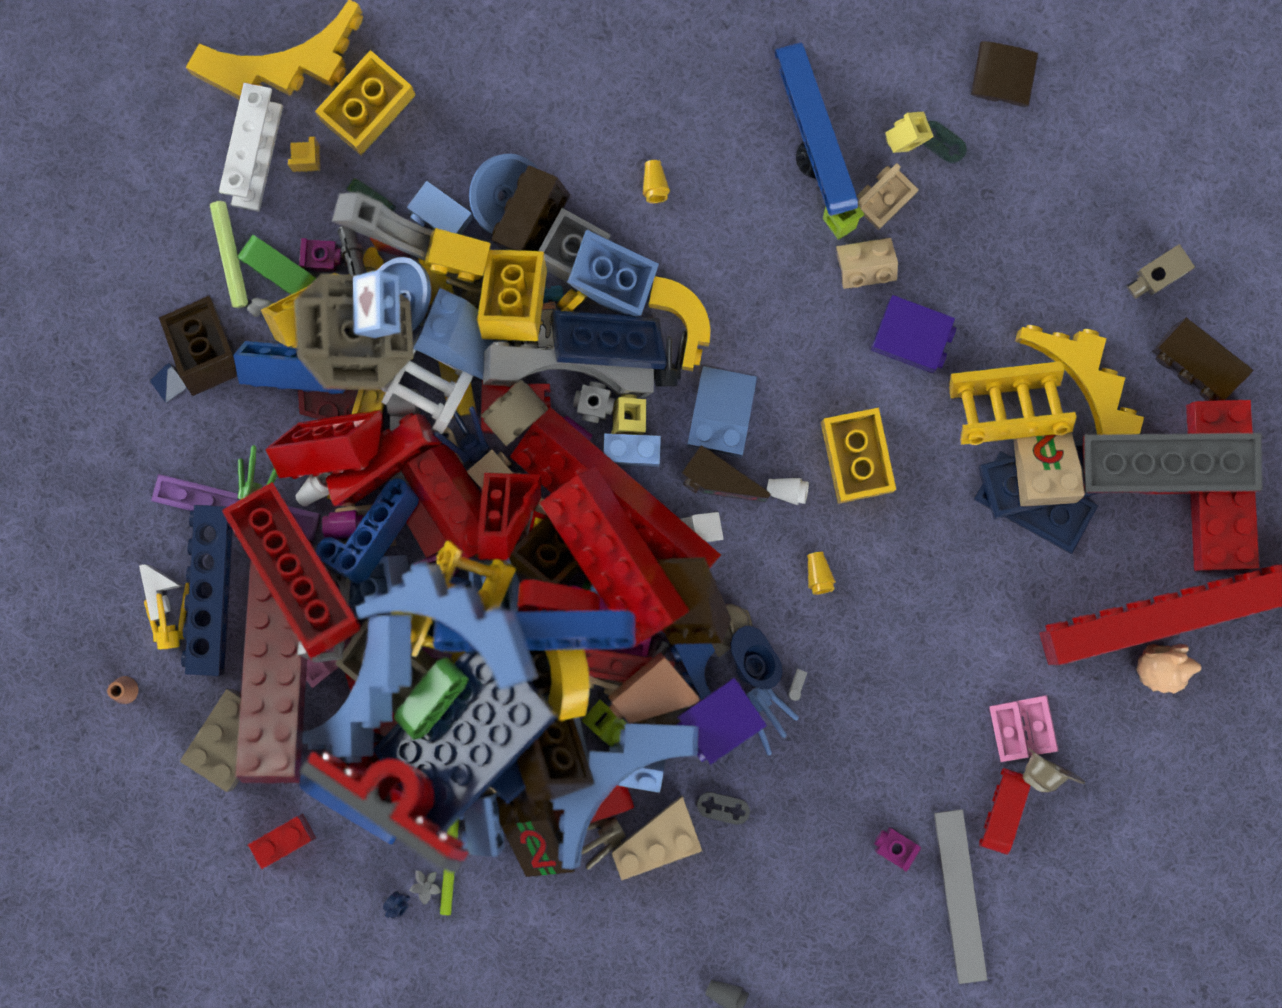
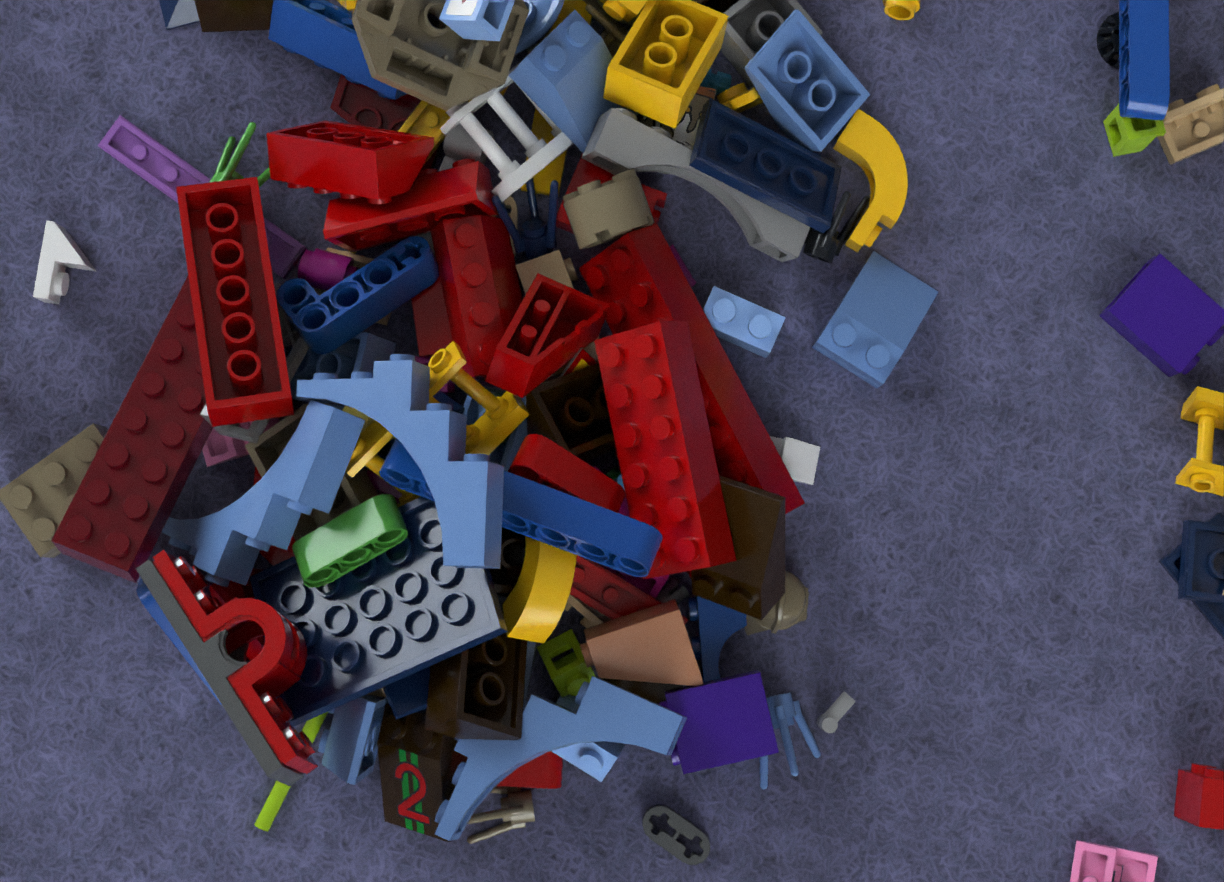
camera: 20 degrees right, 0 degrees up
(167, 635) = (48, 325): yellow plant -> none
(217, 604) = (125, 310): dark blue brick -> none
(282, 841) = (87, 649): red brick -> none
(313, 489) = (308, 211): white cone -> none
(396, 905) = (201, 791): dark blue plate -> none
(425, 887) = (248, 782): light grey plant -> none
(594, 413) = (711, 255): light grey brick -> none
(636, 408) = (766, 274): light yellow brick -> none
(658, 842) = (574, 846): tan wedge -> none
(716, 477) = (837, 398): dark brown slope -> none
(755, 658) = (795, 657): dark blue piece -> none
(789, 489) = (923, 454): white cone -> none
(819, 574) = (921, 579): yellow cone -> none
(858, 455) = (1033, 444): yellow brick -> none
(867, 263) = (1140, 201): tan bracket -> none

